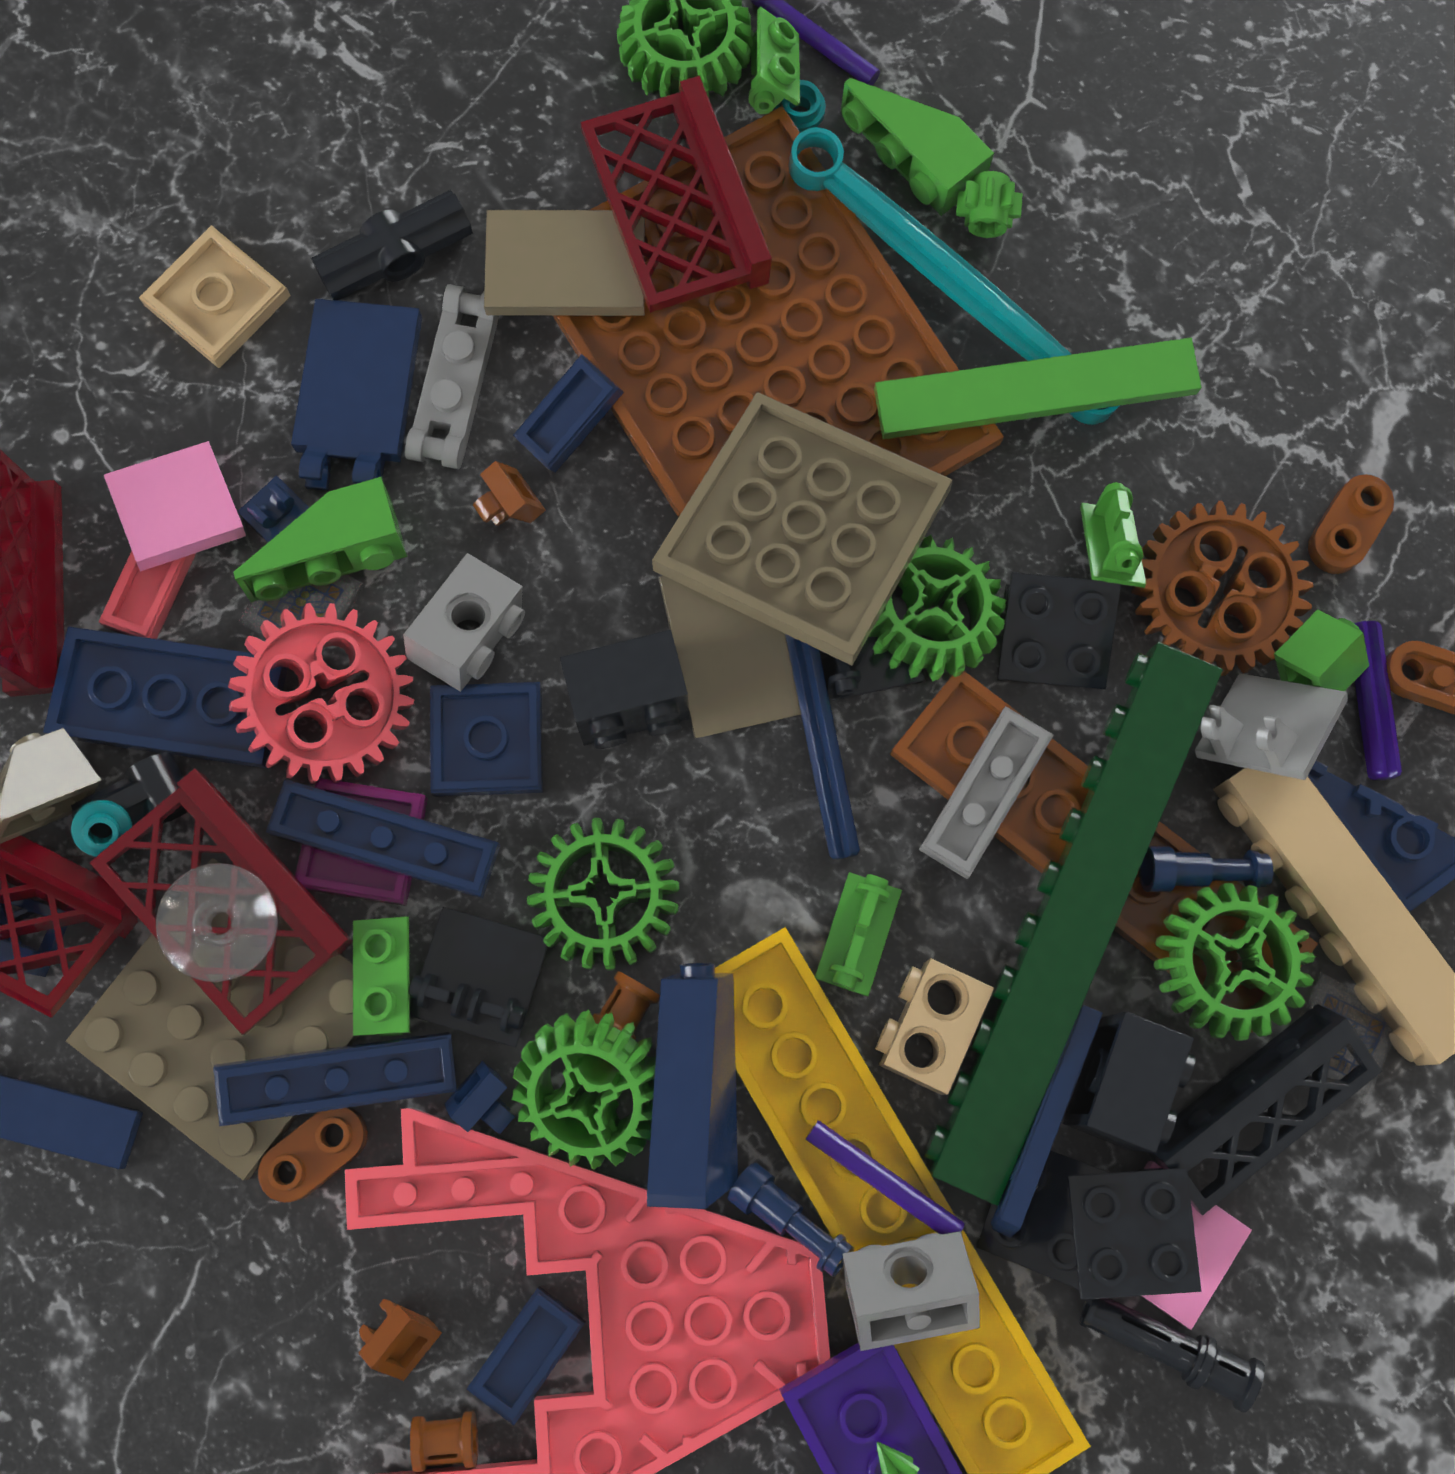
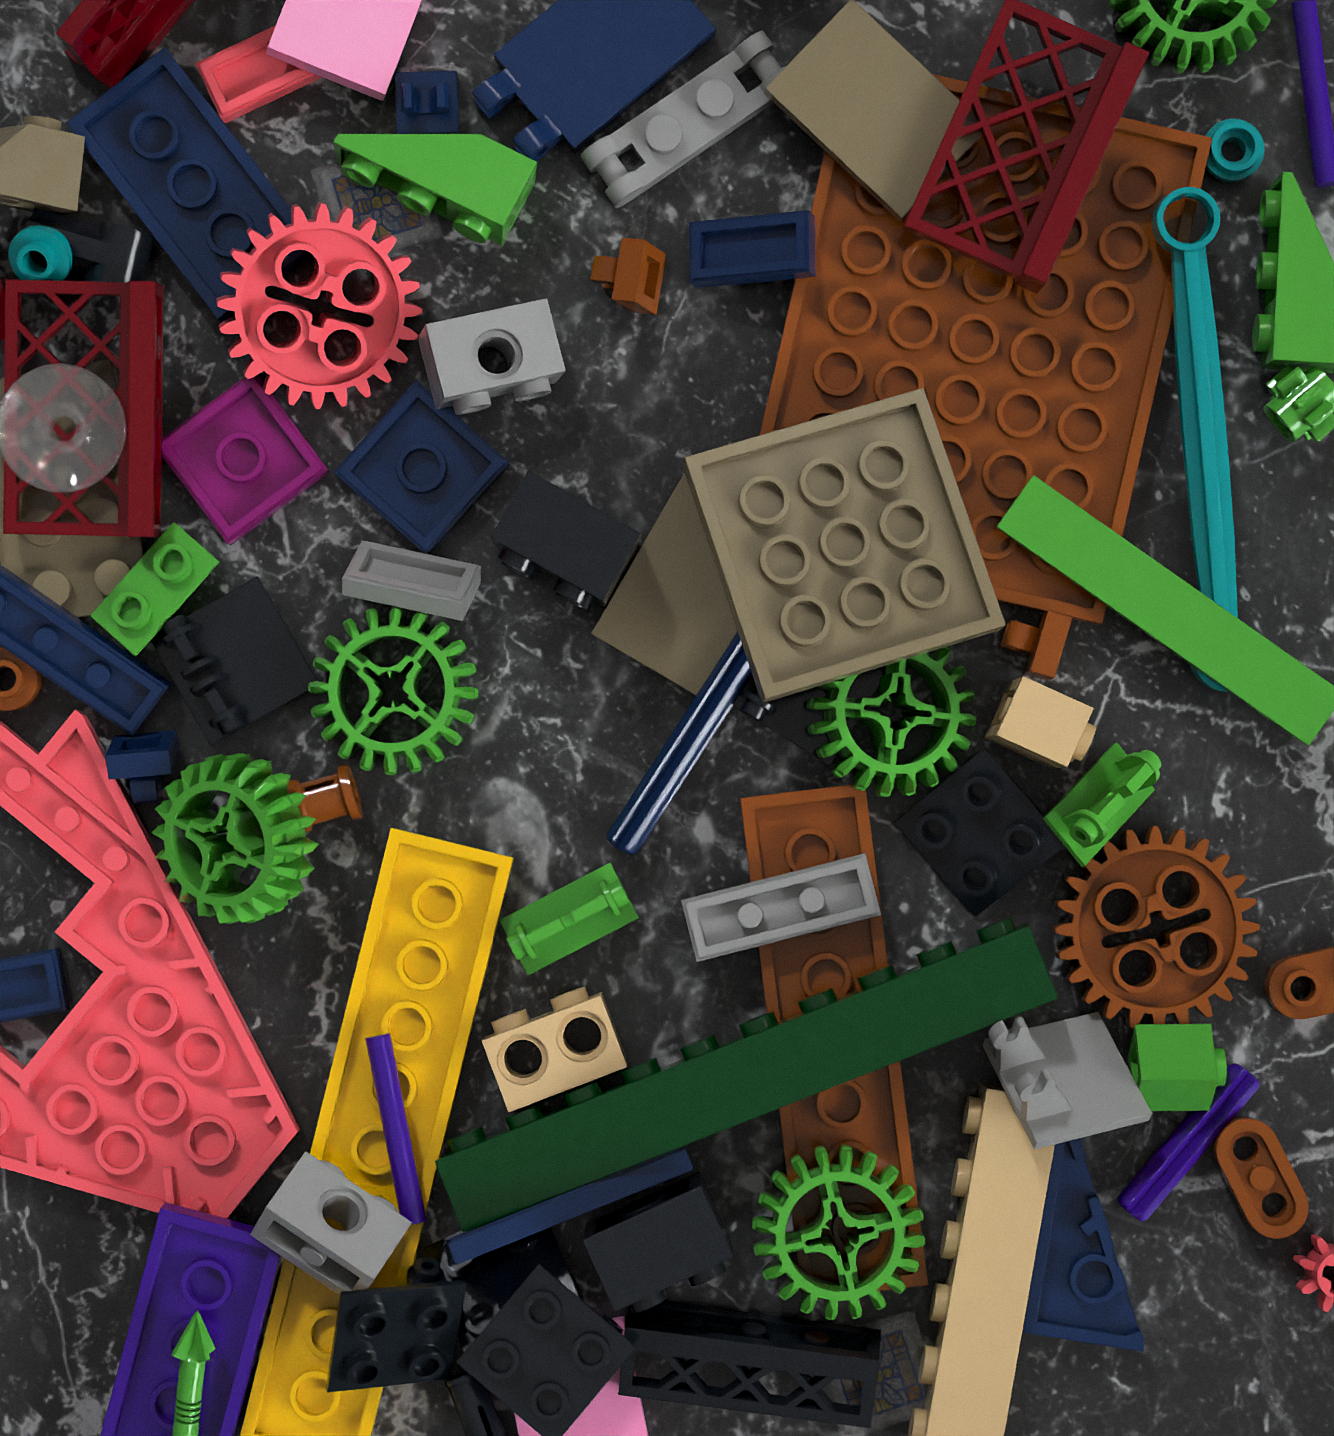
camera: 50 degrees right, 10 degrees up
(383, 838) = (259, 475): dark blue tile -> none
(547, 811) = (411, 580): none -> light grey tile
(694, 1091) = (312, 918): dark blue slope -> none
(758, 1194) = (291, 1044): dark blue piece -> none
(774, 63) = (1245, 91): bright green hinge -> none
(979, 483) = (1041, 644): none -> dark orange tile
(1022, 1318) = (397, 1331): none -> black hinge
(1031, 524) = (1041, 724): none -> tan brick
(1165, 869) = (859, 1108): dark blue piece -> none

